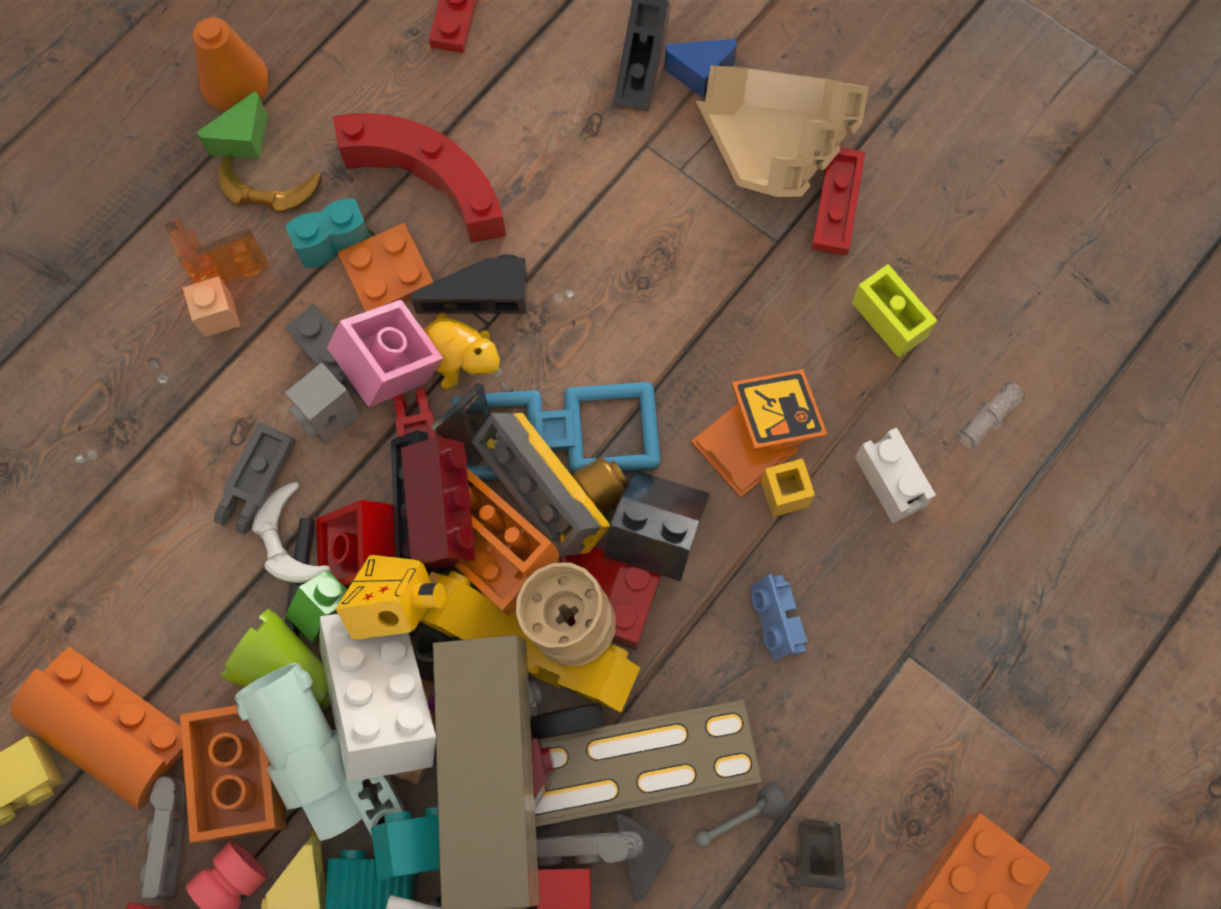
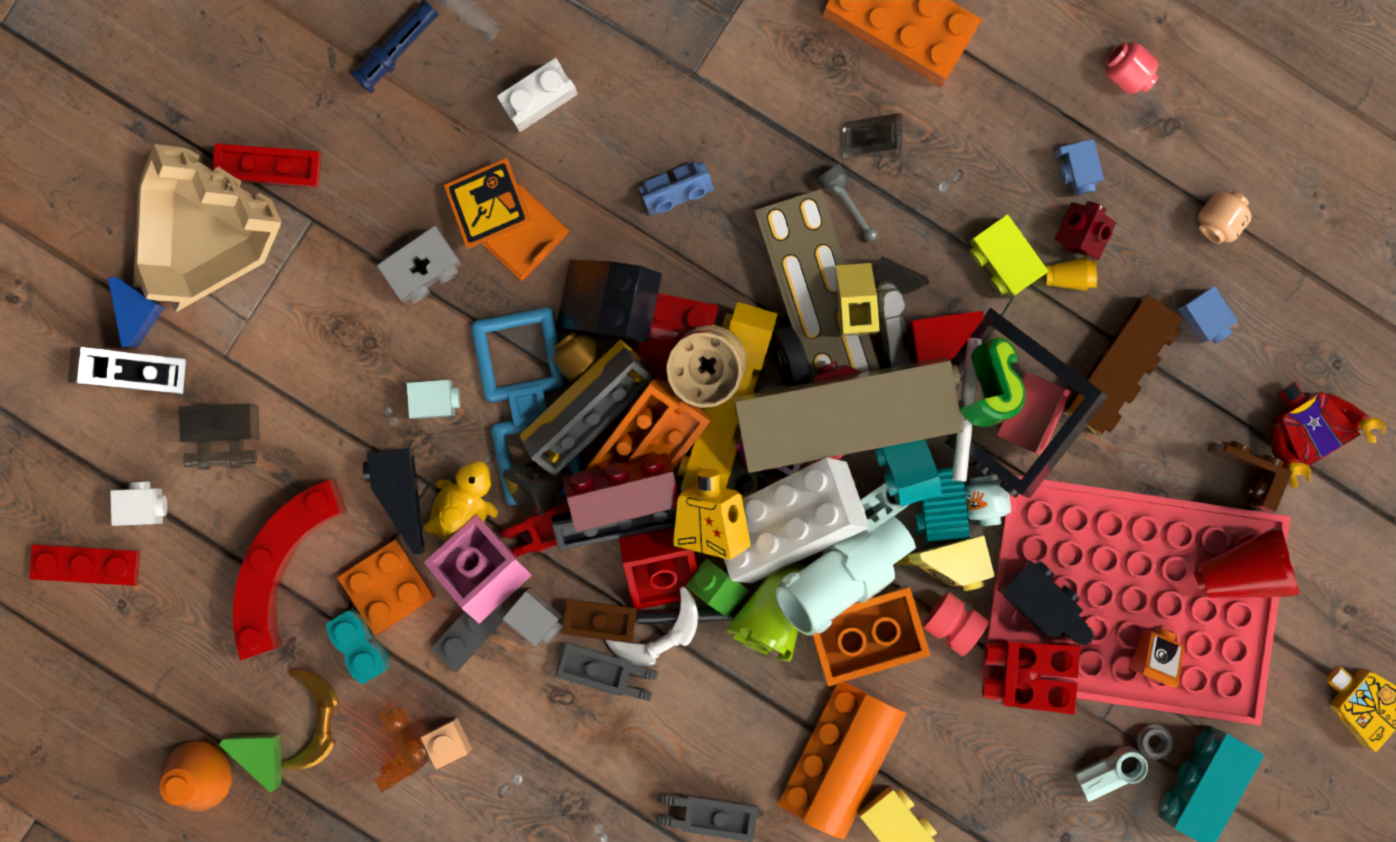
camera: 100 degrees left, 15 degrees up
(73, 571) = (711, 816): none -> dark grey hinge
(165, 838) = (924, 684): light grey hinge -> none
(309, 478) = (599, 620): none -> reddish brown plate
(506, 48) = (138, 505): none -> white brick
(574, 332) = (432, 399): none -> light aqua brick
(576, 127) = (218, 424): none -> clear smoke brick
(623, 804) = (857, 300): none -> light yellow slope
(717, 316) = (400, 266): none -> light grey brick
(787, 487) = (561, 189): yellow brick -> none
(893, 311) = (380, 105): neon yellow brick -> none
(991, 369) = (380, 62): none -> dark blue pin

